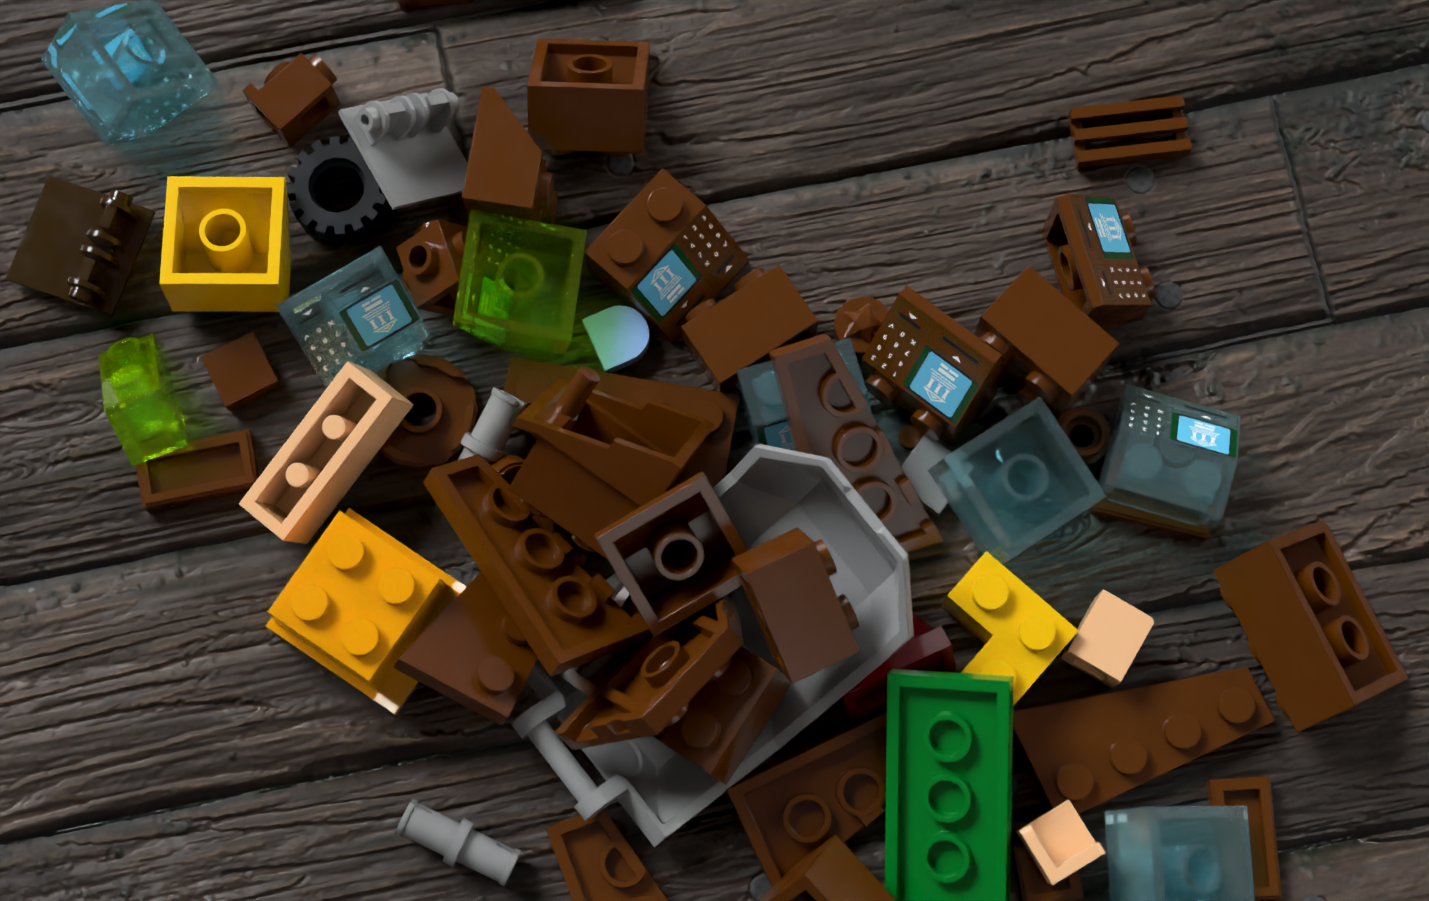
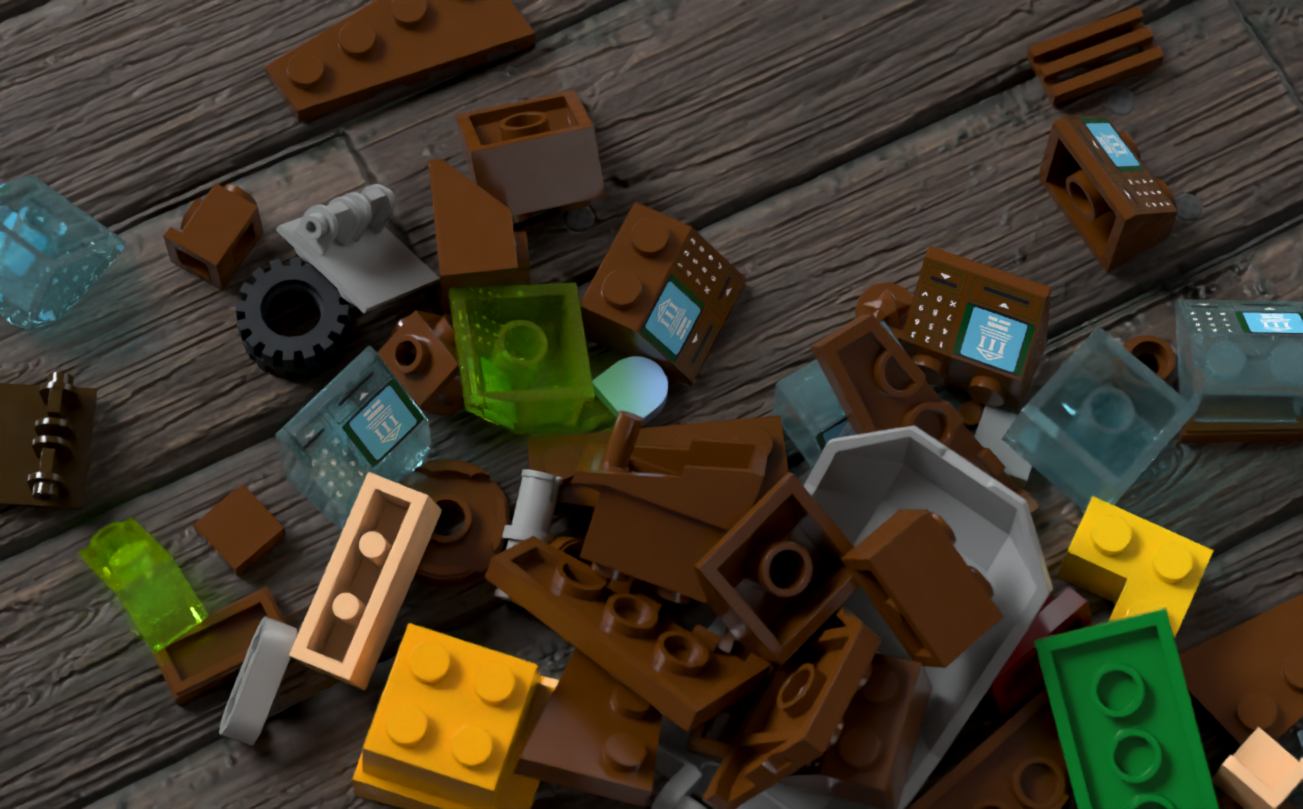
camera: 20 degrees left, 10 degrees down
(213, 514) = (258, 681): none -> light grey beam
(226, 244) = (192, 398): yellow slope -> none
(747, 325) = (766, 343): reddish brown brick -> none
(1044, 342) = (1092, 269): reddish brown brick -> none
(1108, 639) = (1243, 558): light nougat panel -> none

